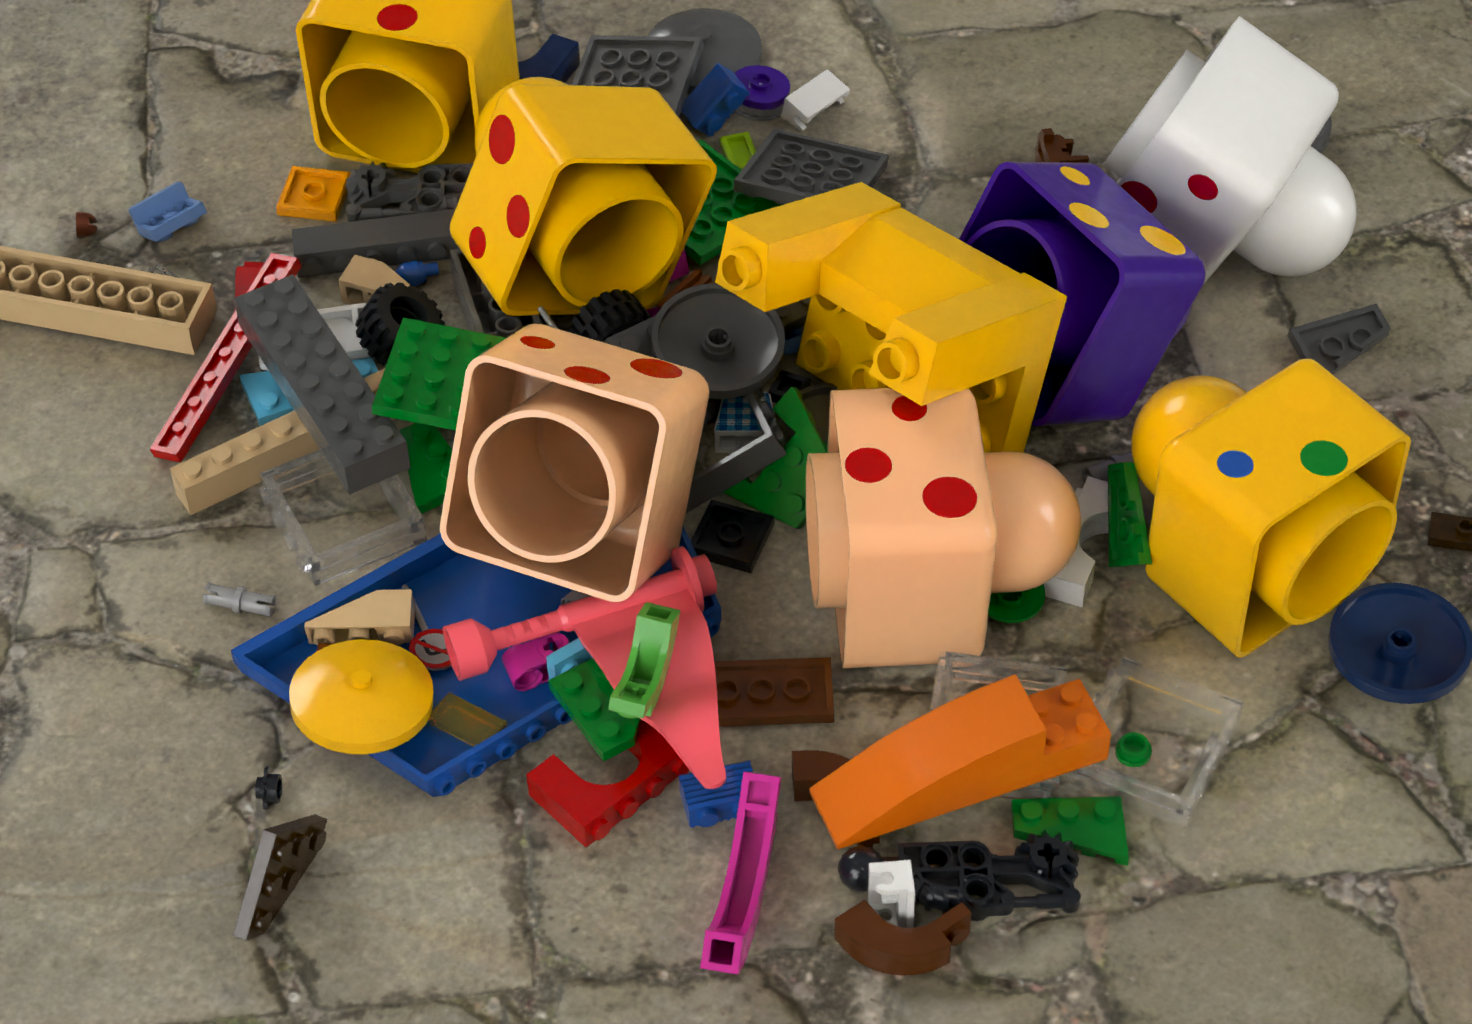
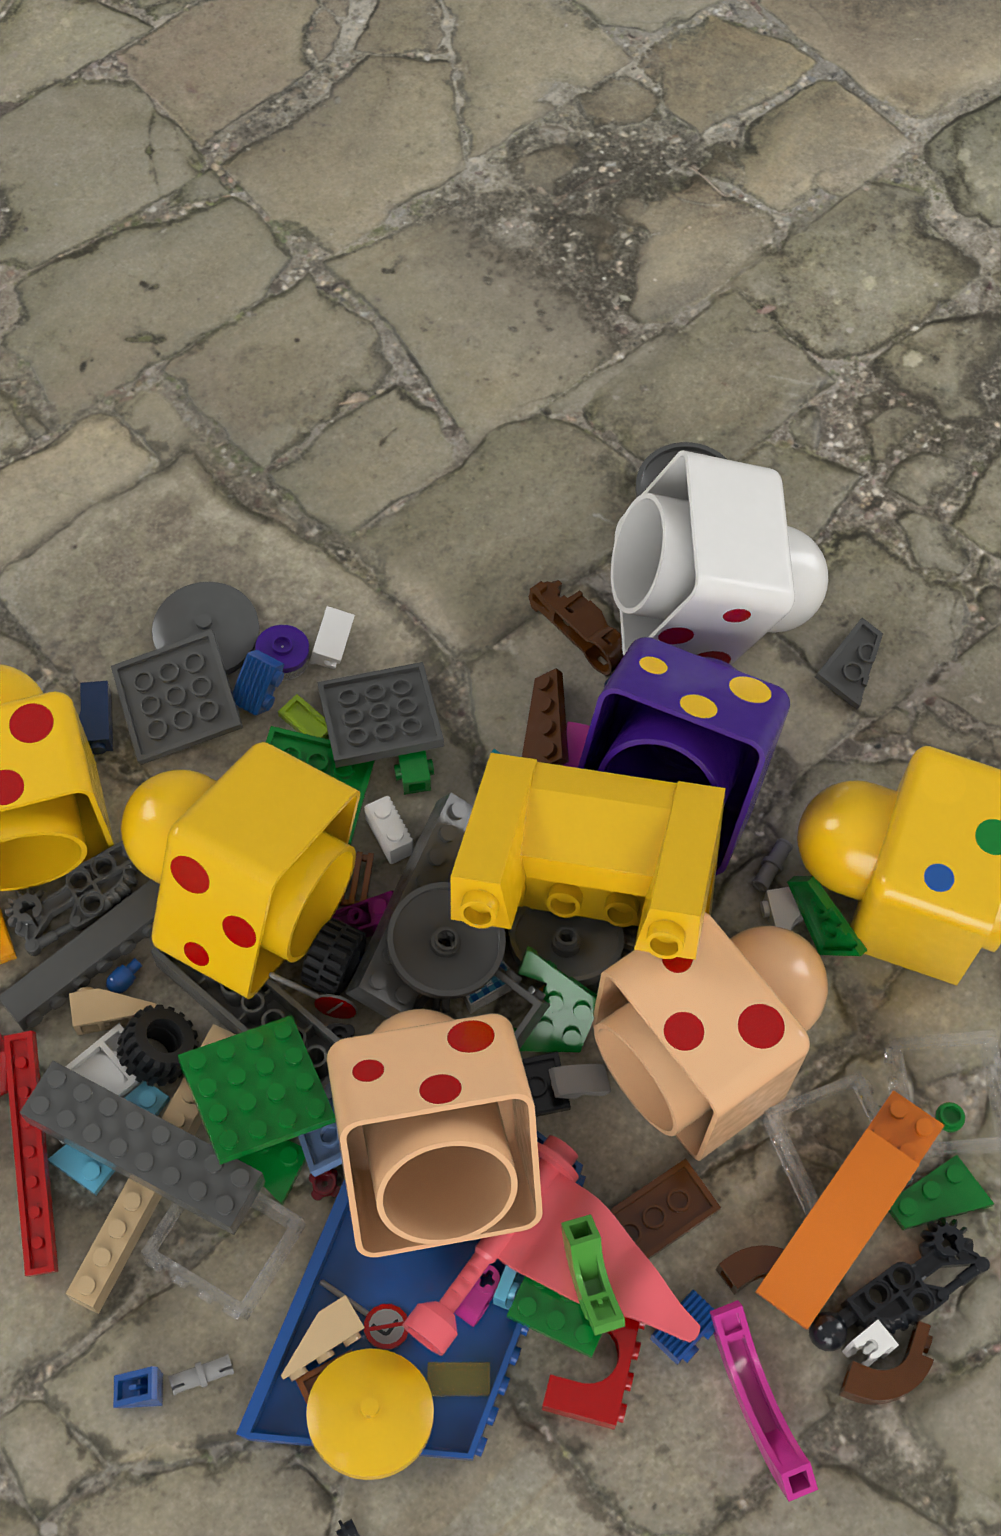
camera: 35 degrees left, 15 degrees up
(180, 582) = (138, 1388): none -> blue slope
(771, 540) = (579, 1080): none -> light grey slope

